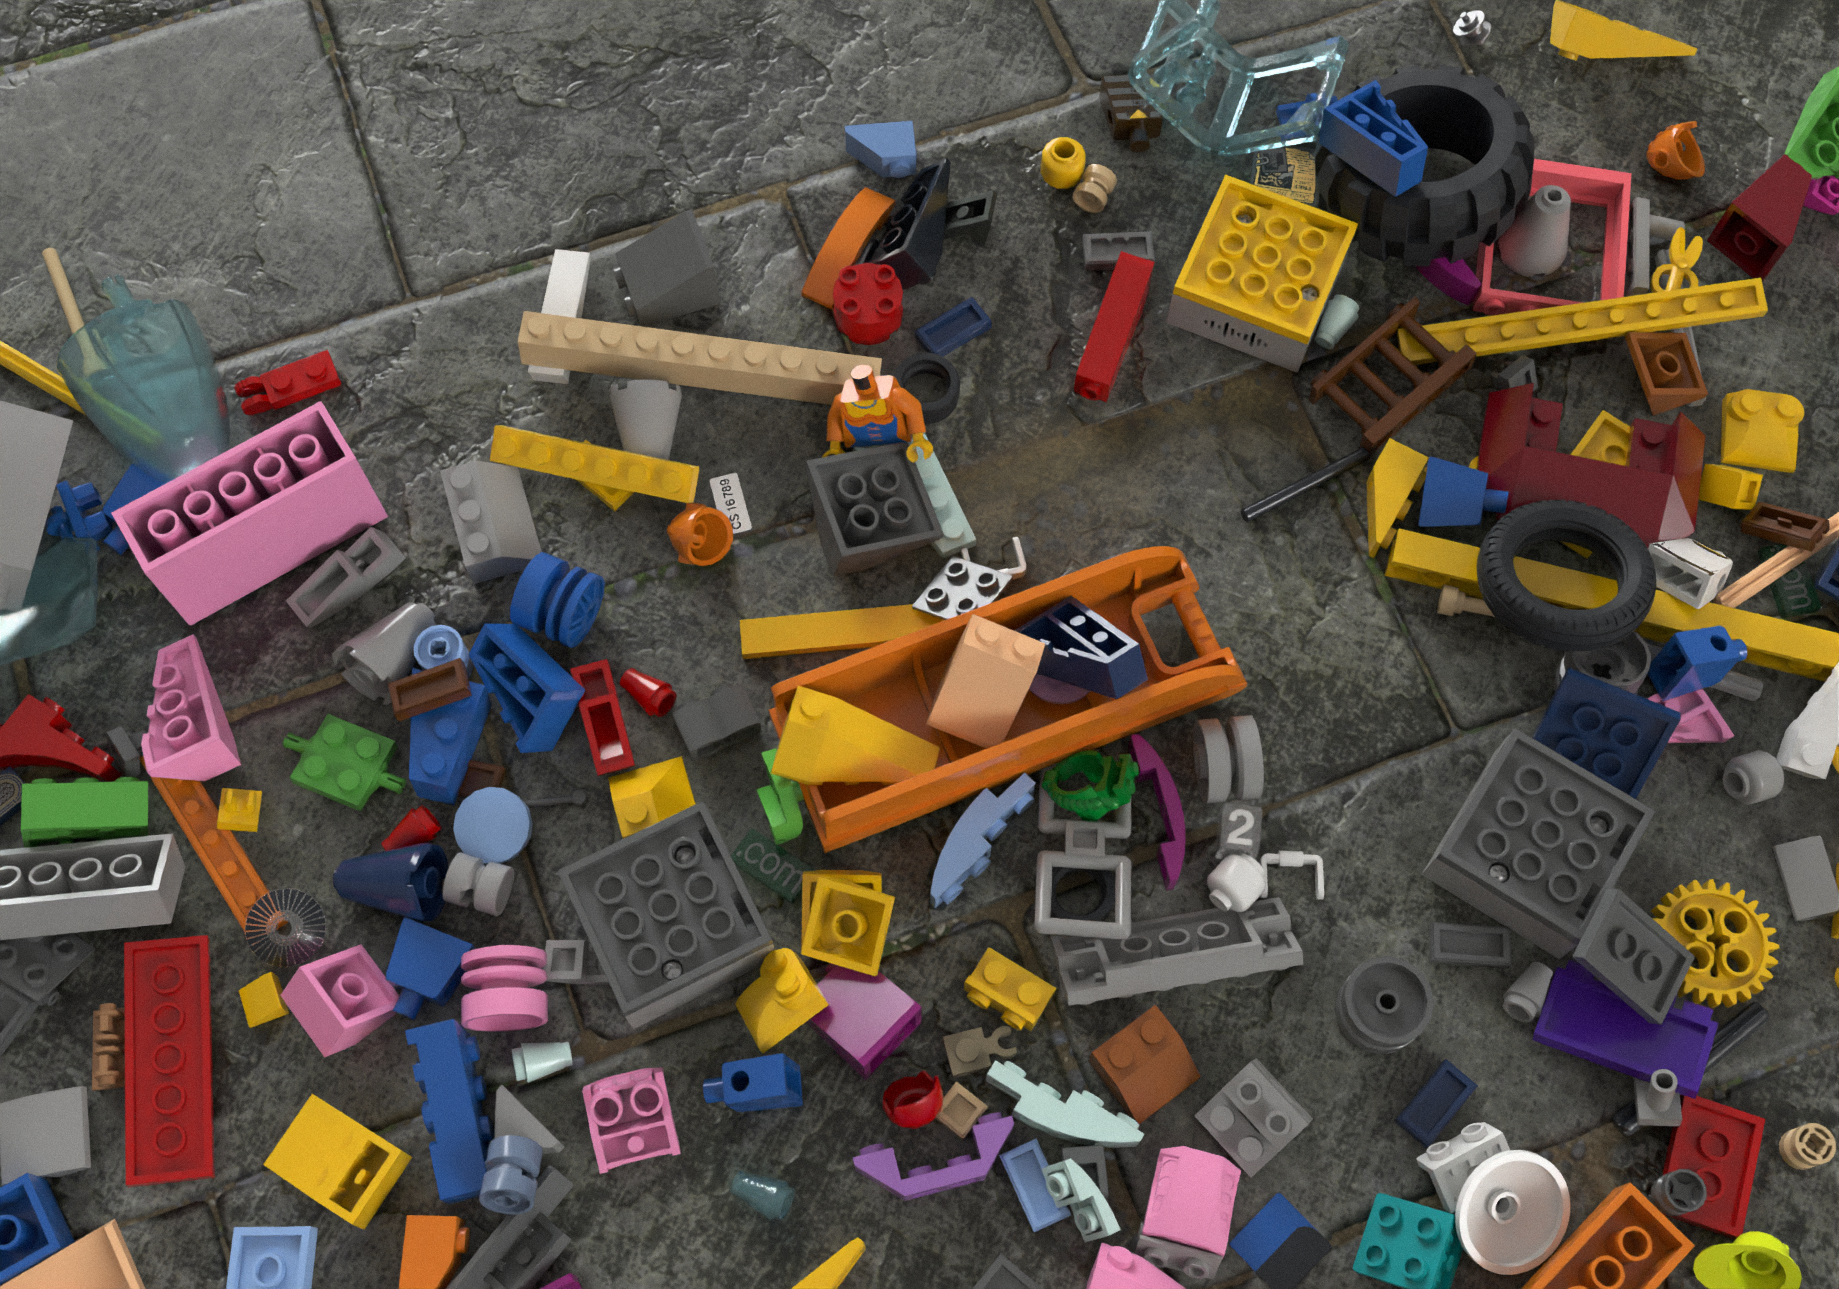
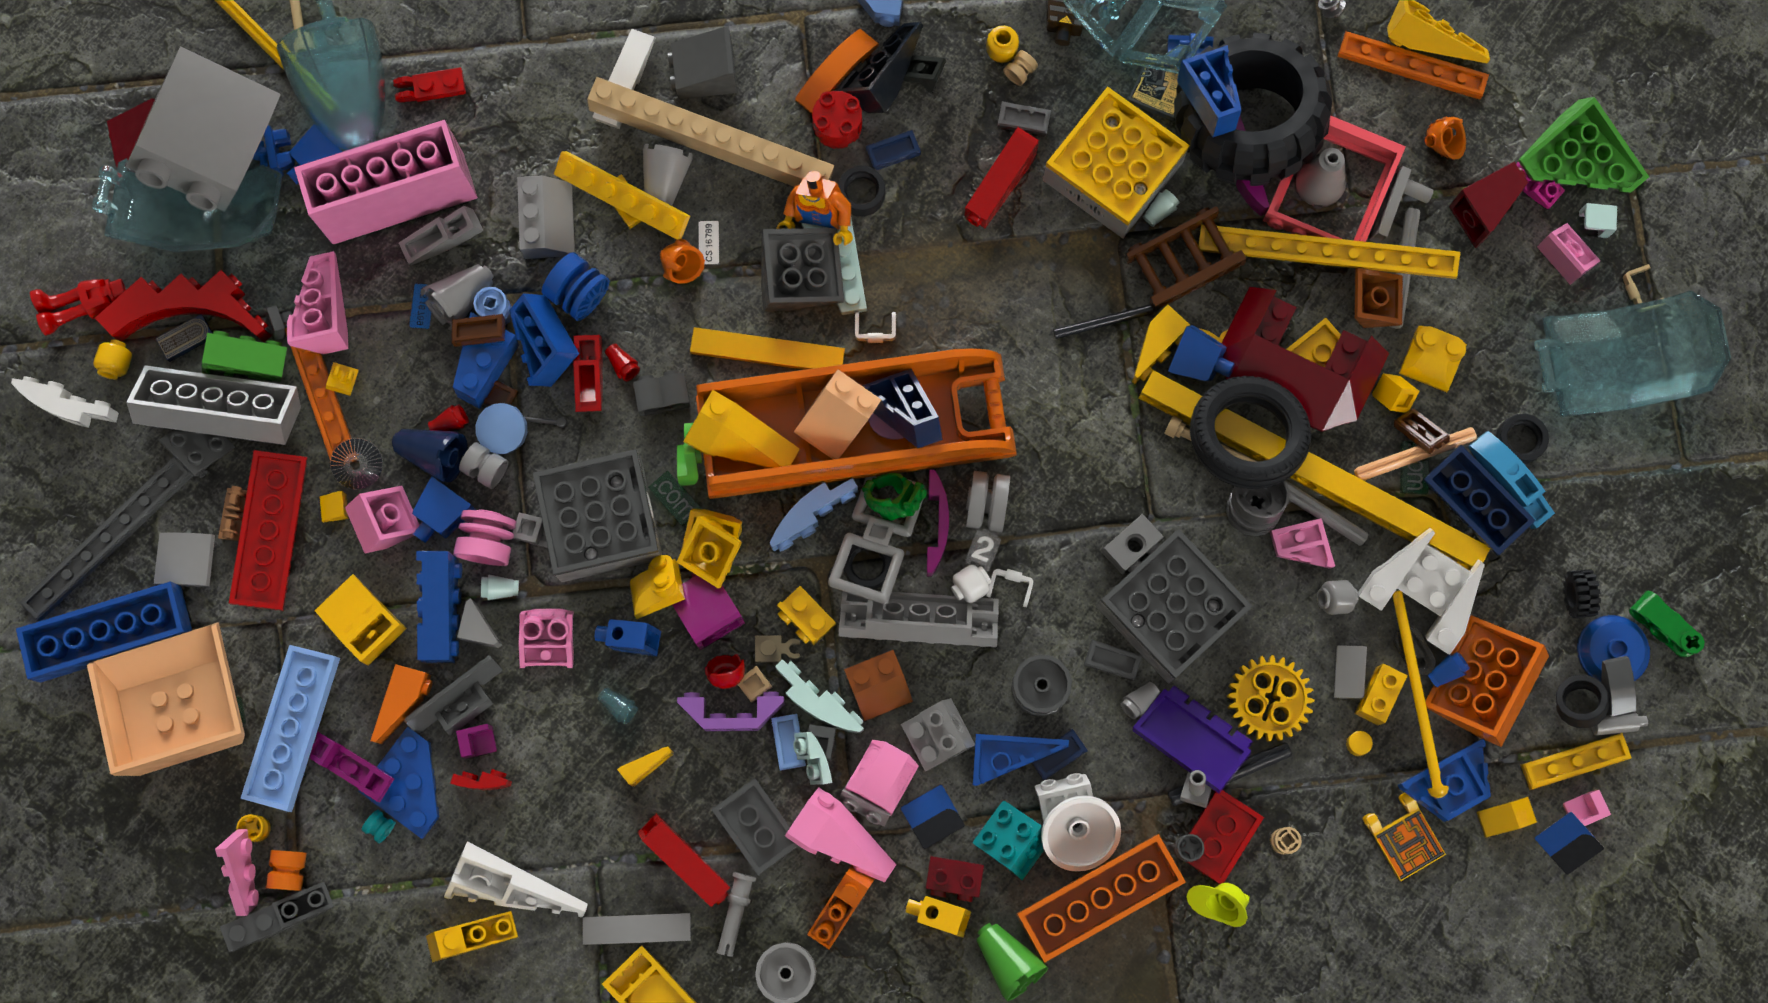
camera: 15 degrees right, 10 degrees up
(337, 691) = (420, 312): none -> clear blue sticker
(344, 762) = (415, 362): bright green plate -> none
(511, 1175) = (463, 655): sand blue wheel -> none
(650, 795) = (607, 434): yellow slope -> none
(962, 588) = (846, 343): hinge -> none
(1359, 1121) = (1002, 754): none -> blue wing
(1451, 752) = (1140, 531): none -> light grey brick
(1515, 374) = (1274, 279): dark grey tile -> none
(1599, 80) = (1413, 65): none -> orange tile
(1606, 730) = (1240, 547): dark blue plate -> none
(1633, 956) = (1207, 695): dark grey plate -> none
(1681, 263) = (1418, 223): yellow piece -> none
(1689, 570) = (1341, 446): white torso -> none
(1694, 661) = (1321, 511): blue torso -> none

